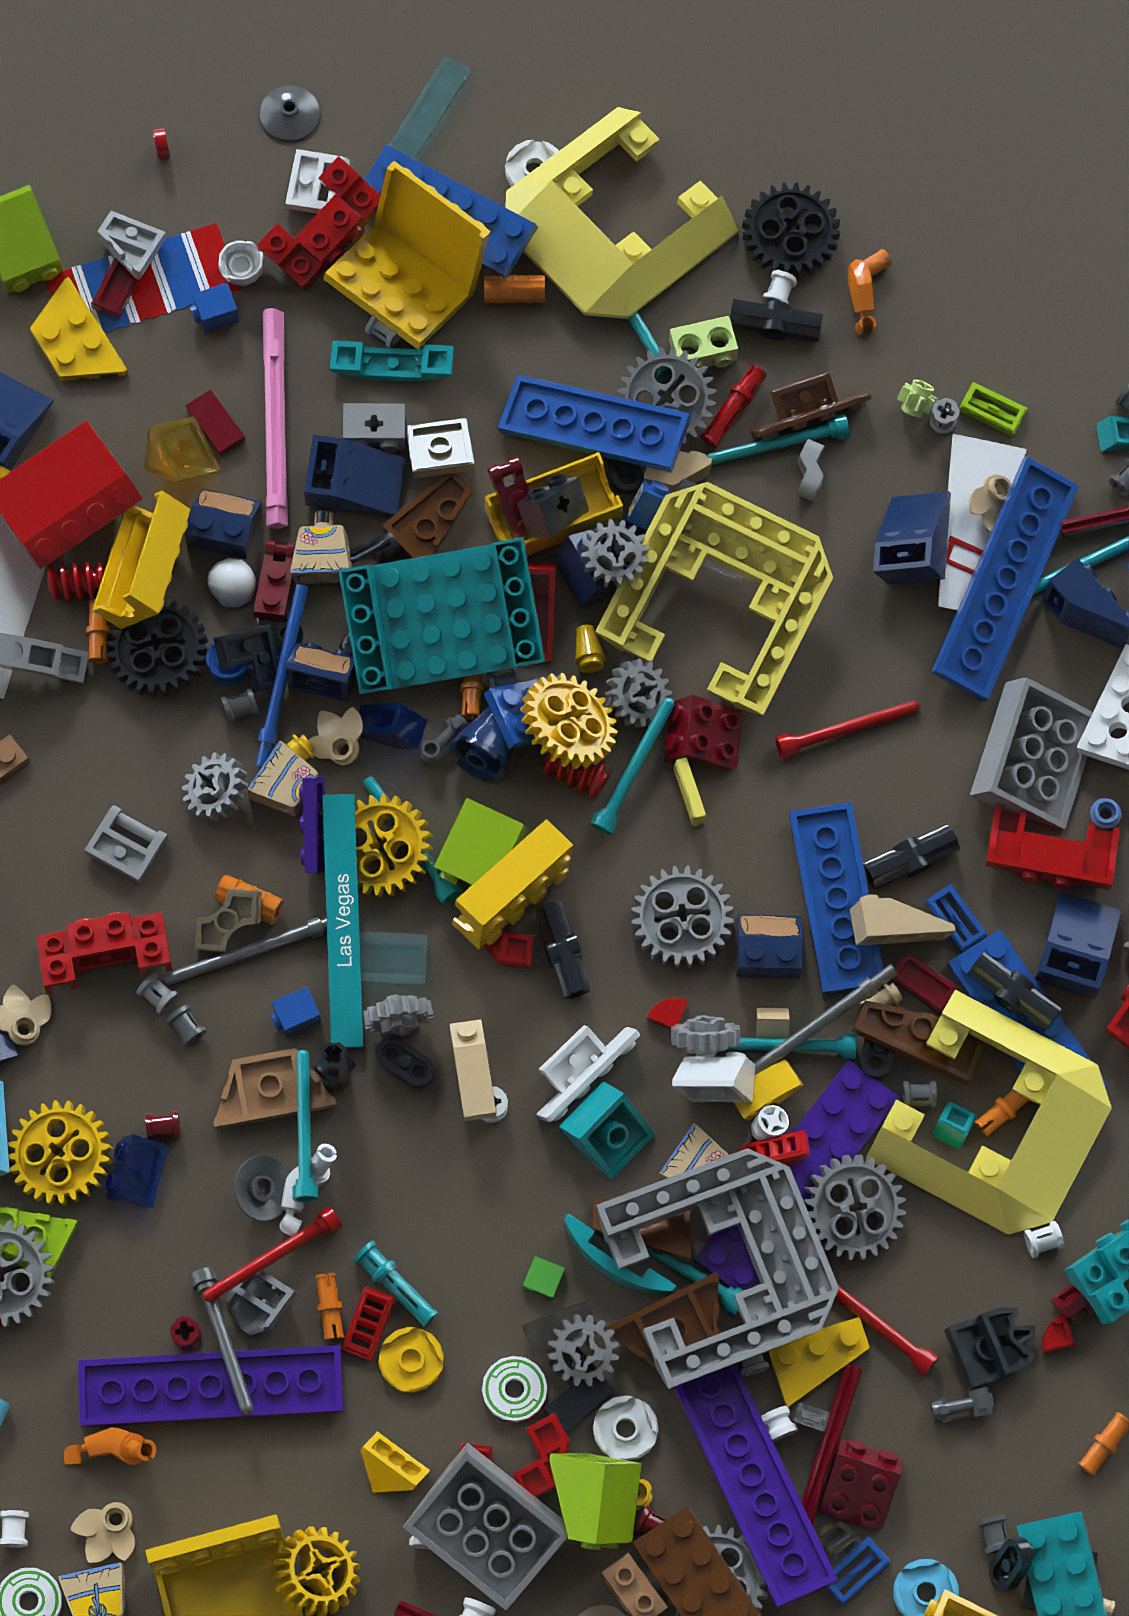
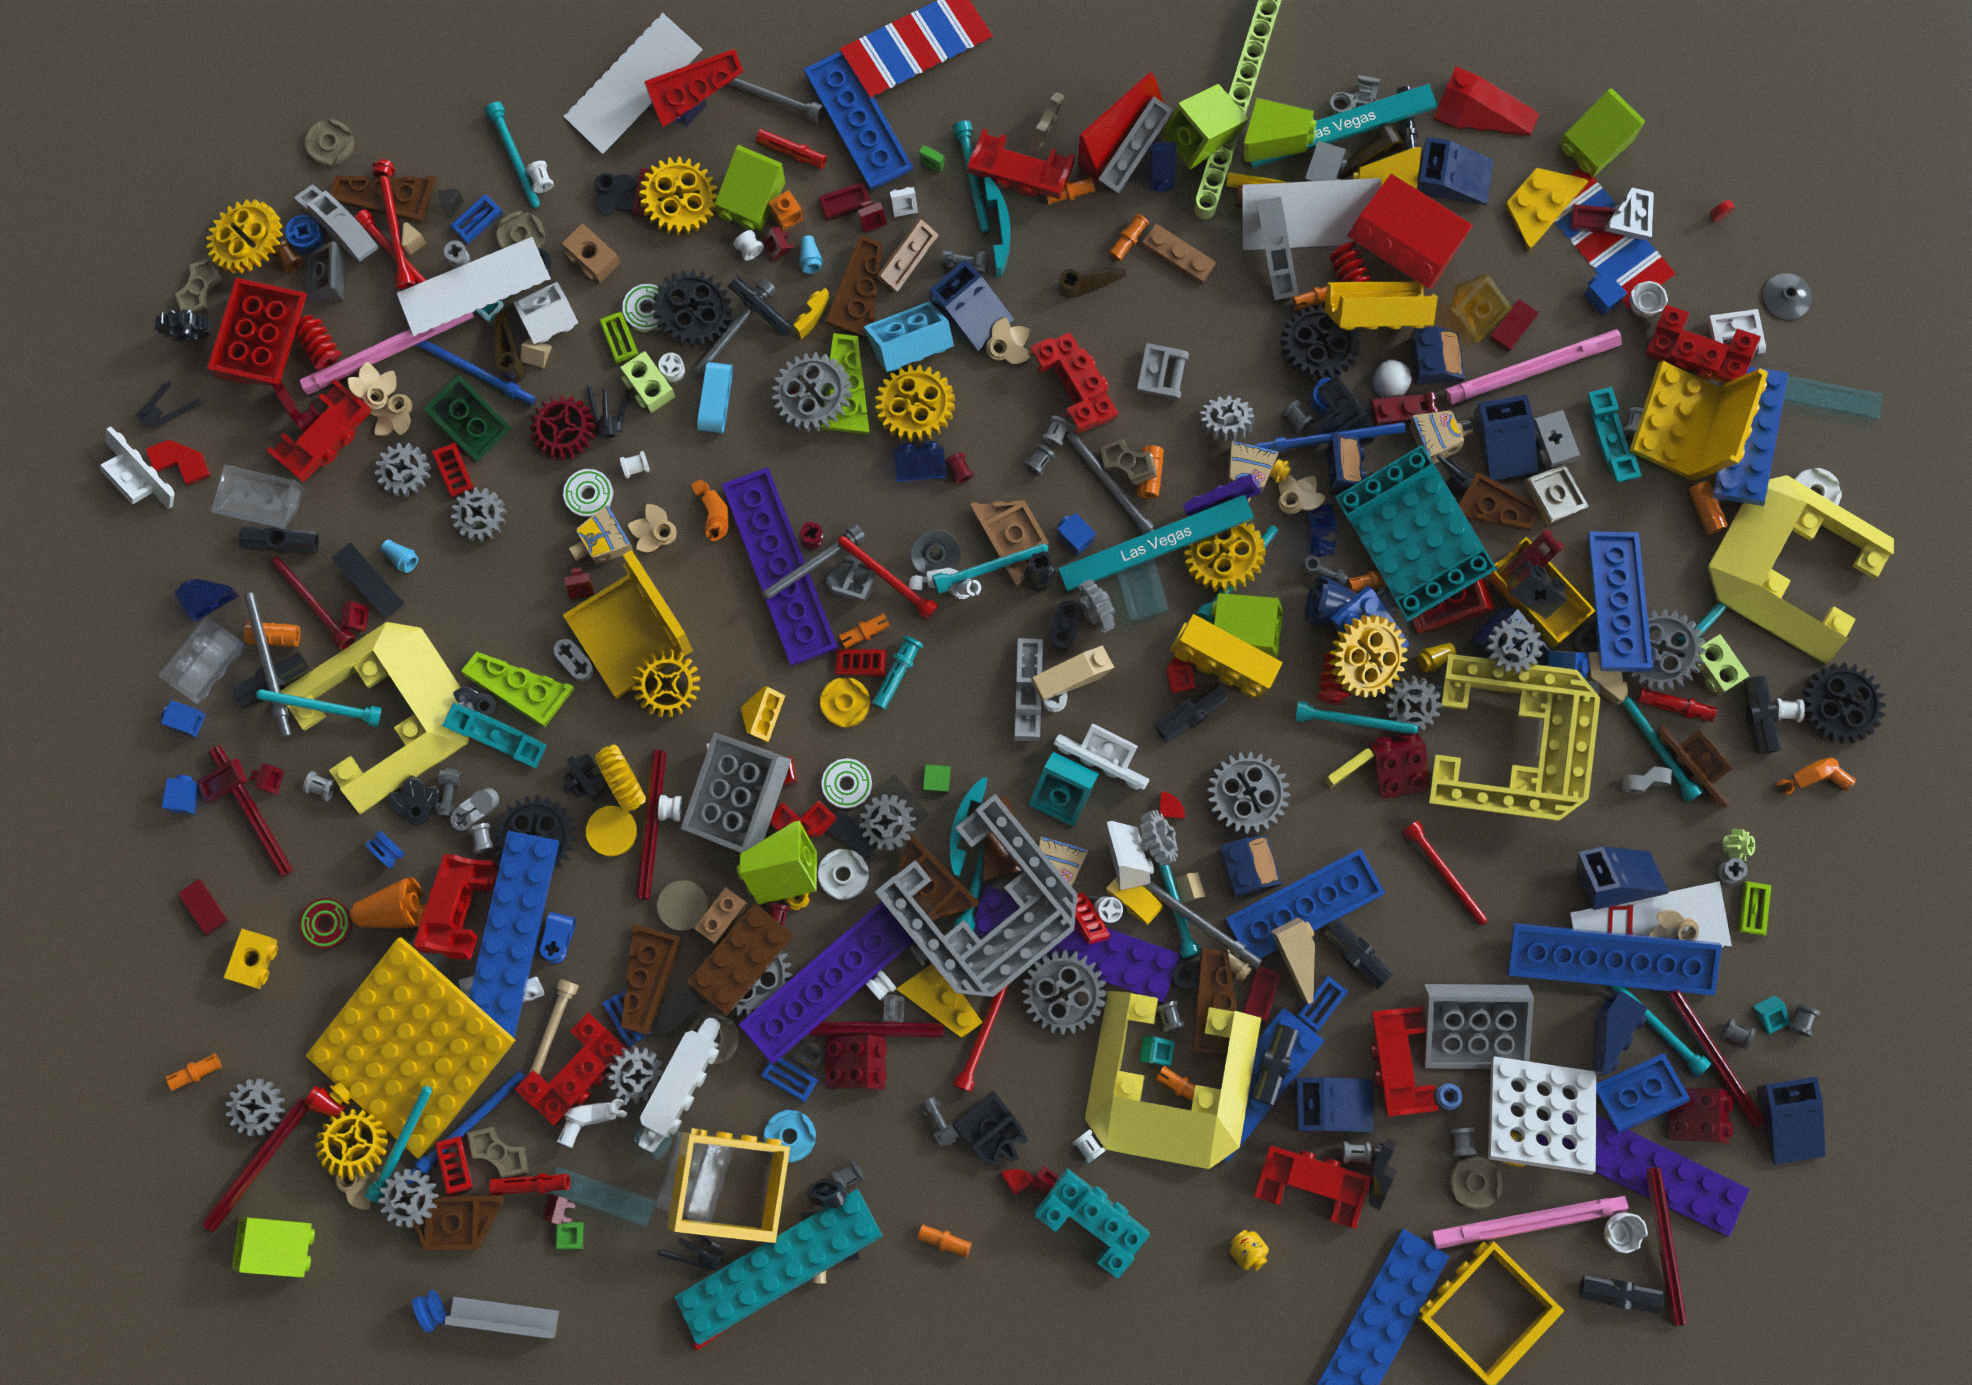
camera: 75 degrees right, 5 degrees up
(478, 1136) = (1027, 699): none -> light grey slope

